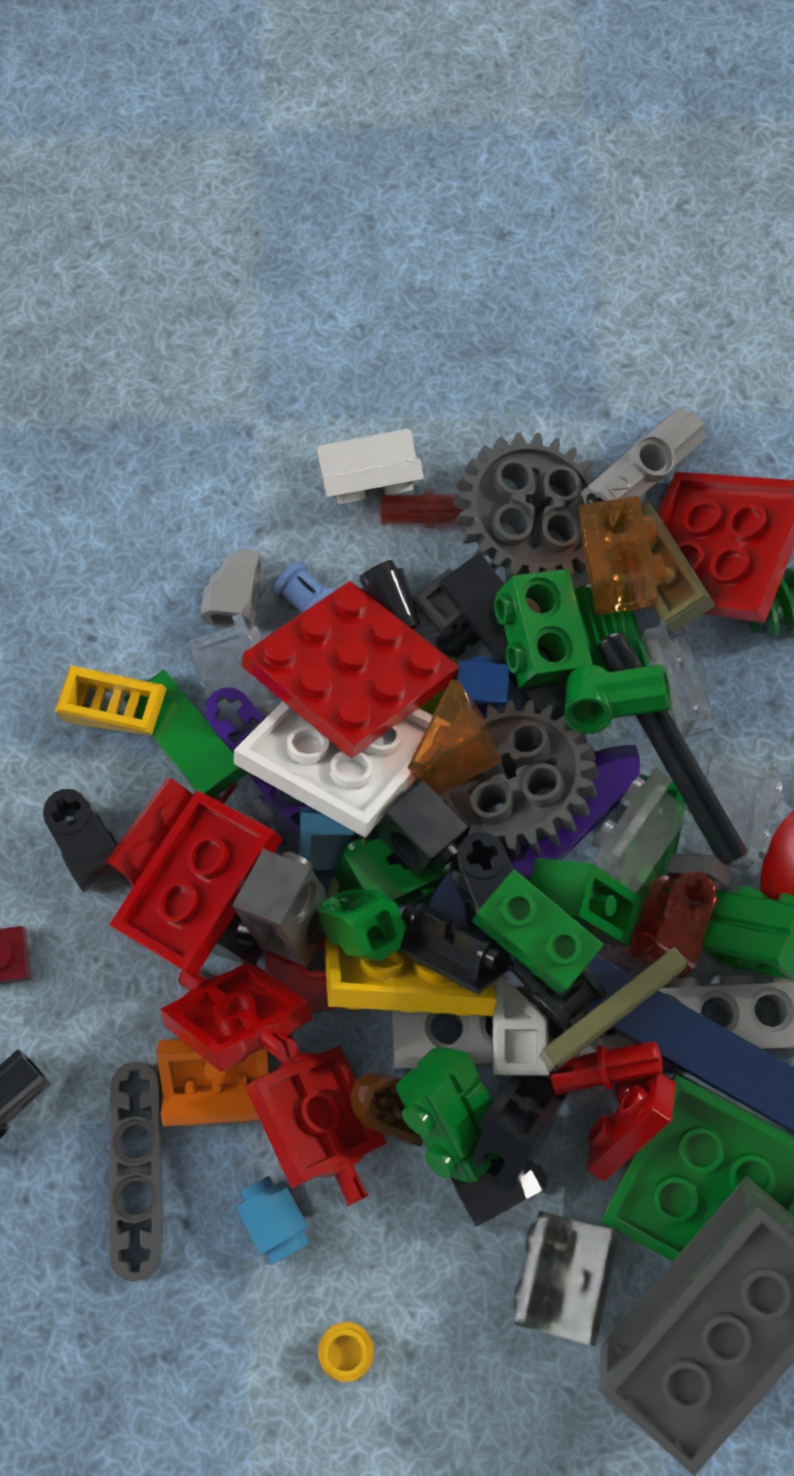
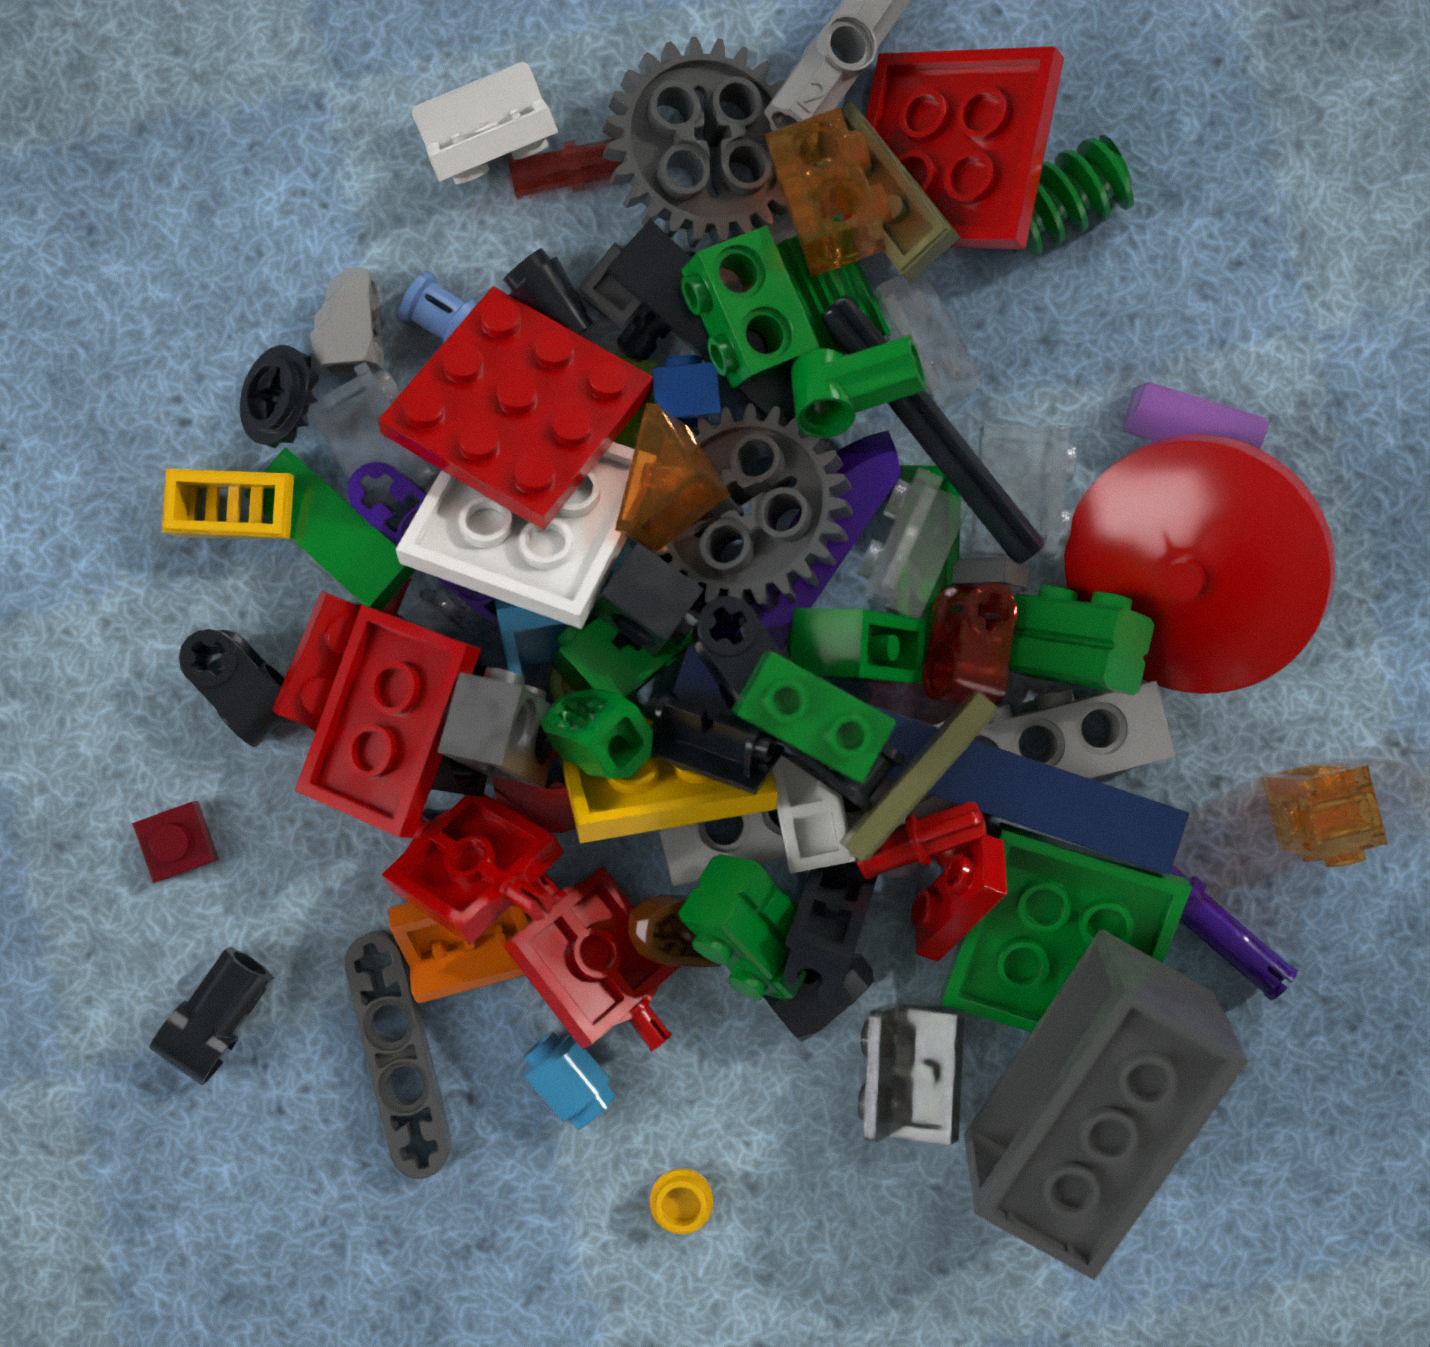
camera: 15 degrees left, 15 degrees up
(175, 614) = (276, 373): none -> black gear

